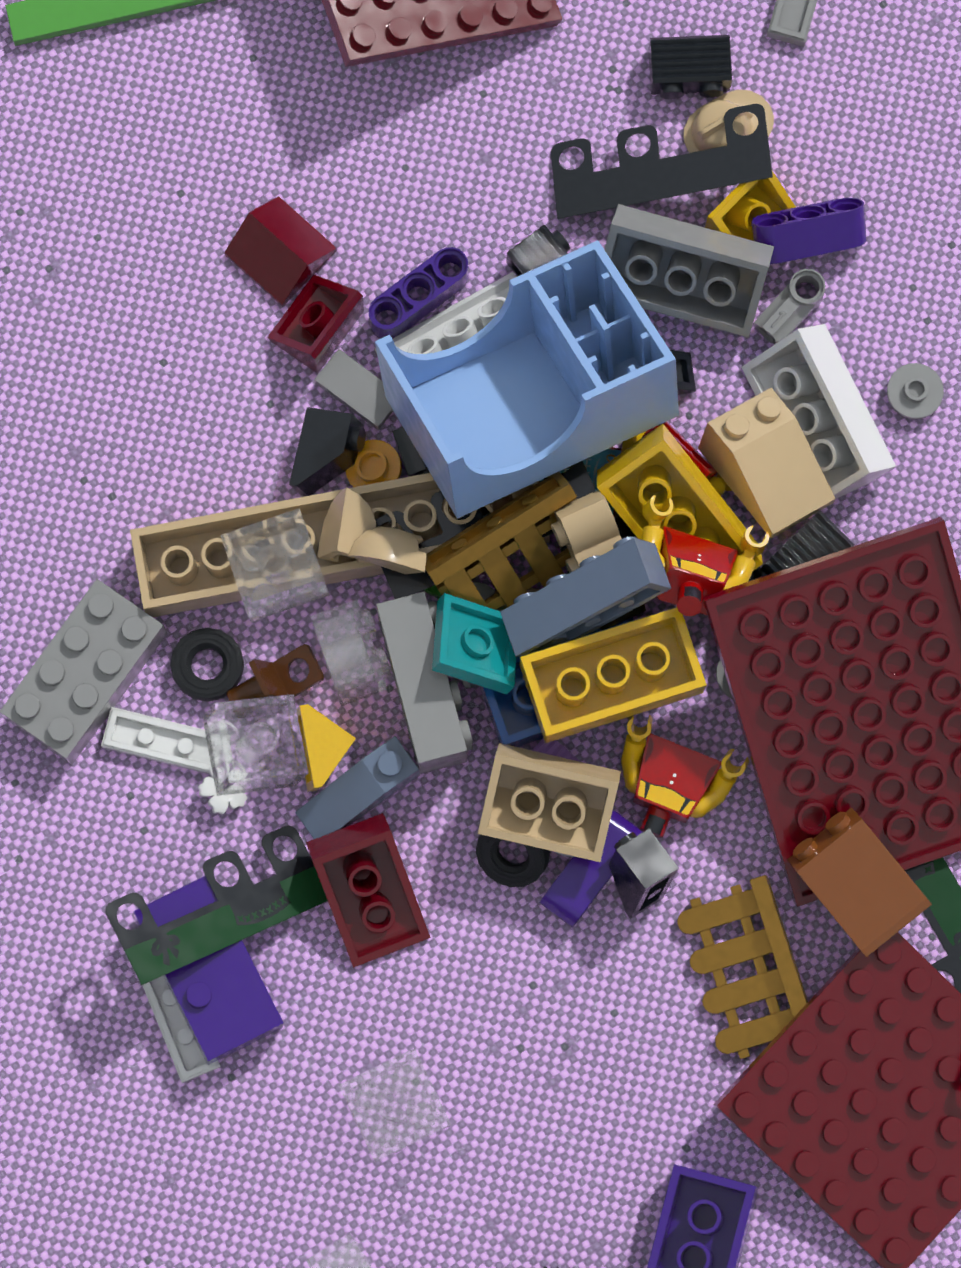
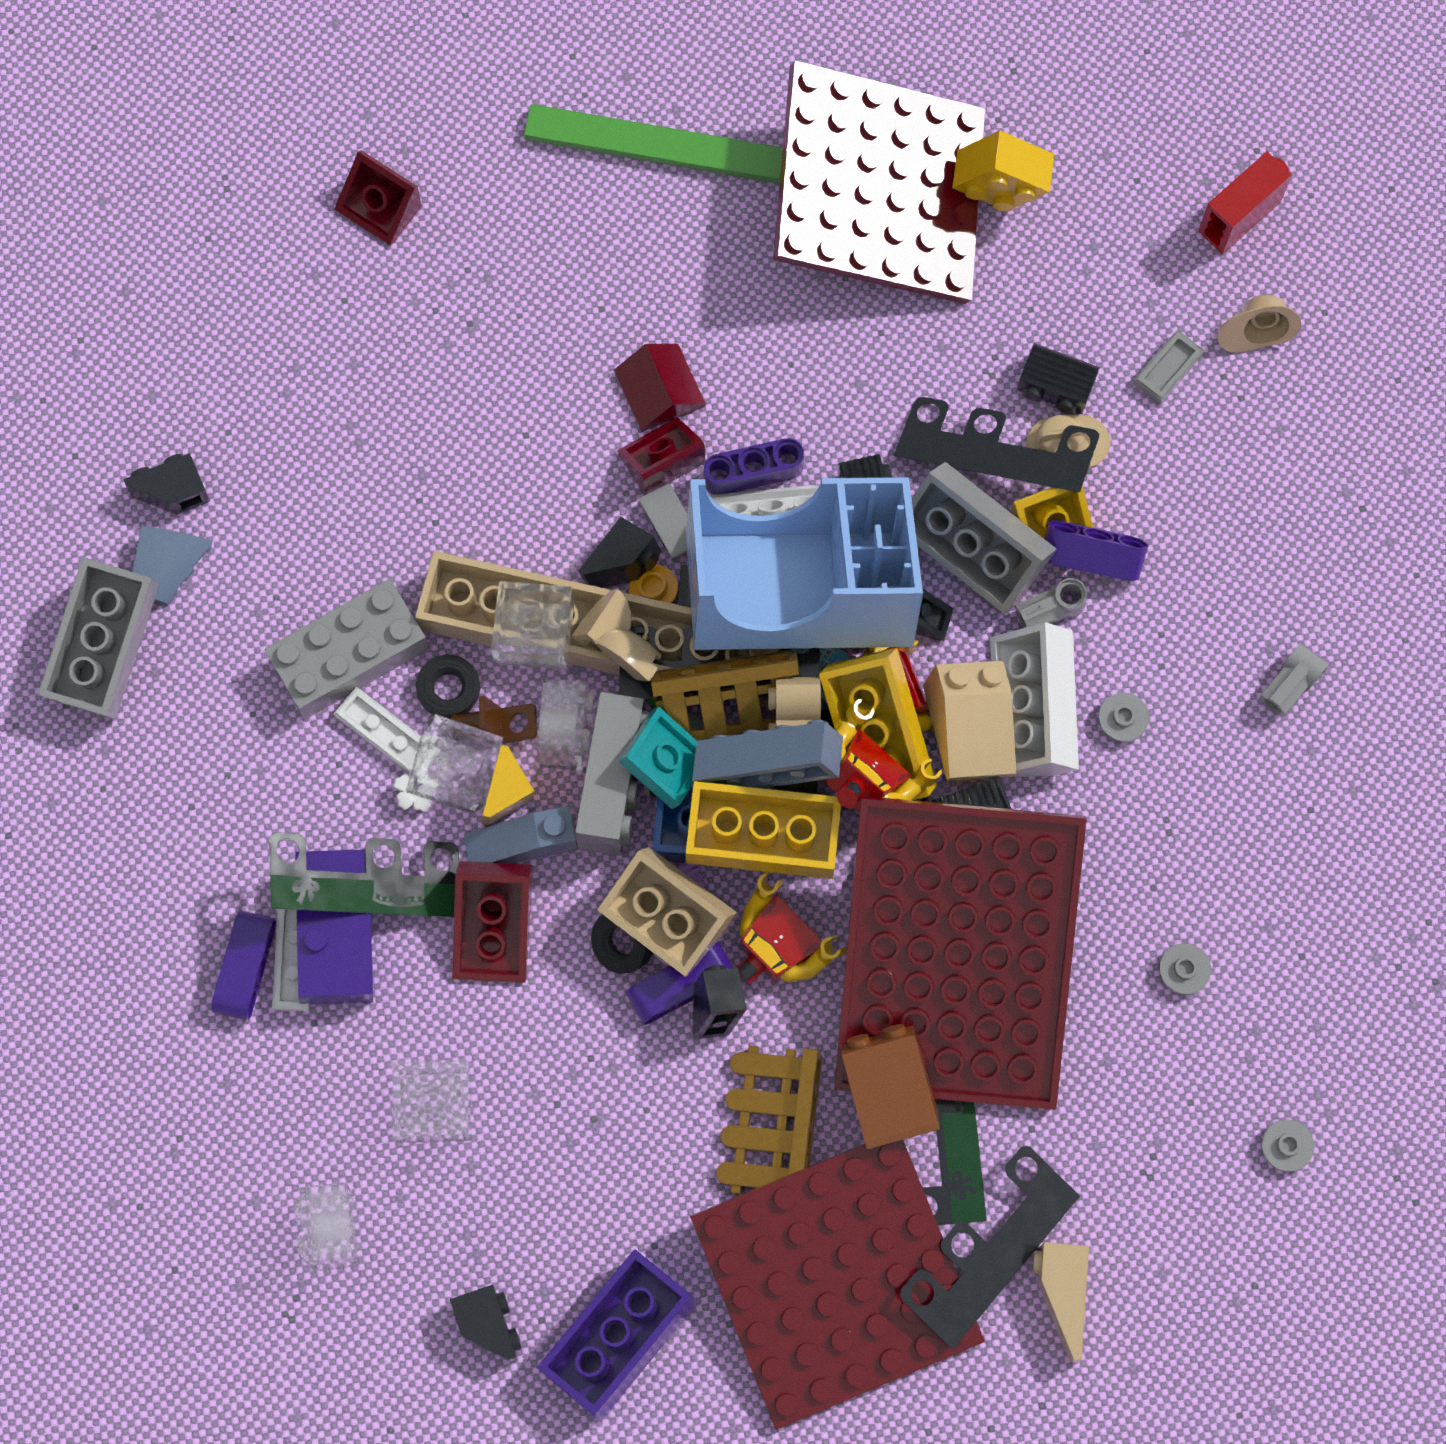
camera: 25 degrees right, 5 degrees down
(131, 1051) = (243, 965): none -> dark purple beam

